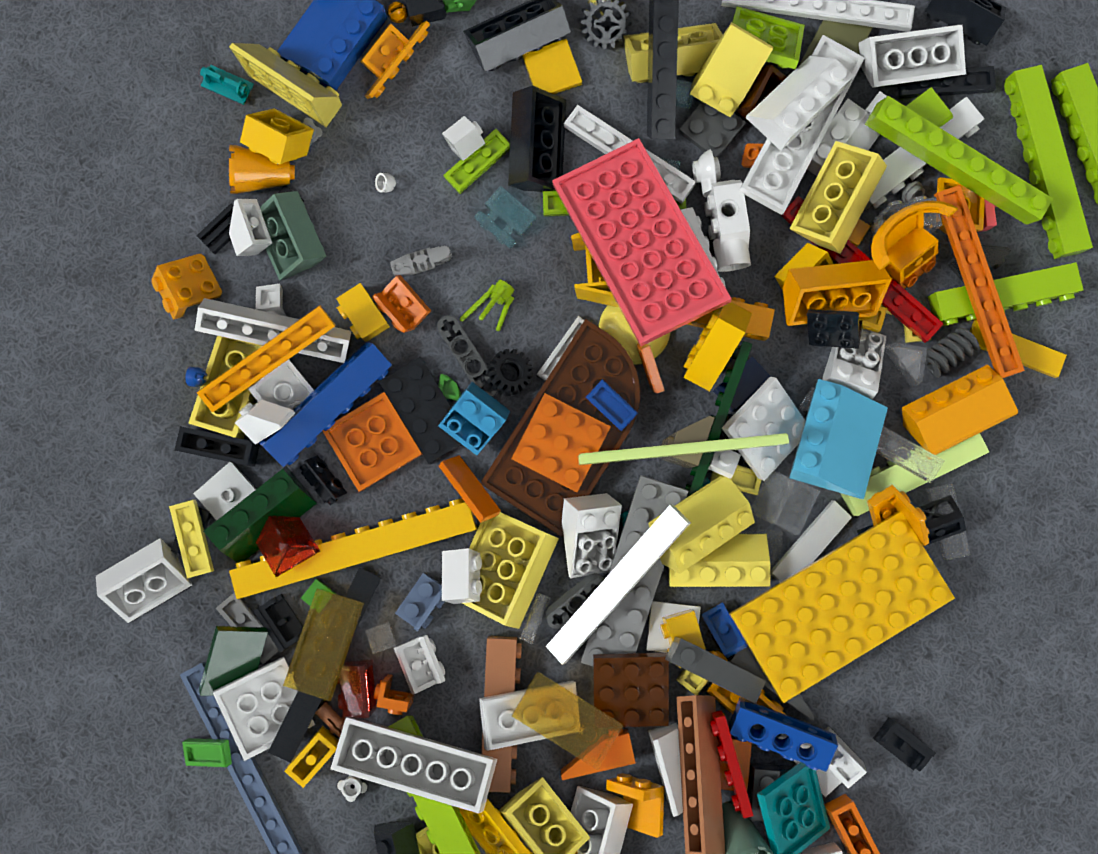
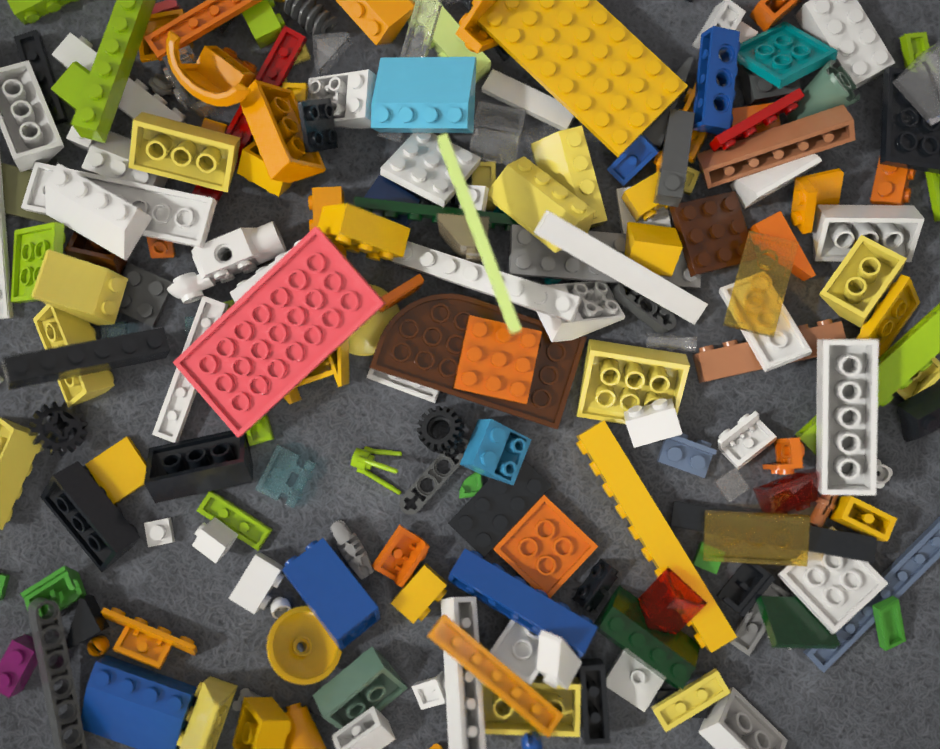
camera: 105 degrees left, 0 degrees up
(348, 211) = (319, 652): none -> yellow dish
(385, 230) = (332, 593): none -> blue slope
(413, 167) = (257, 582): none -> white brick
(469, 488) = (565, 437): orange tile -> none
(485, 90) = (159, 532): none -> white plate
(611, 405) = (448, 319): blue tile -> none
(626, 472) = (474, 276): none -> white plate
(631, 624) = (653, 247): none -> yellow slope

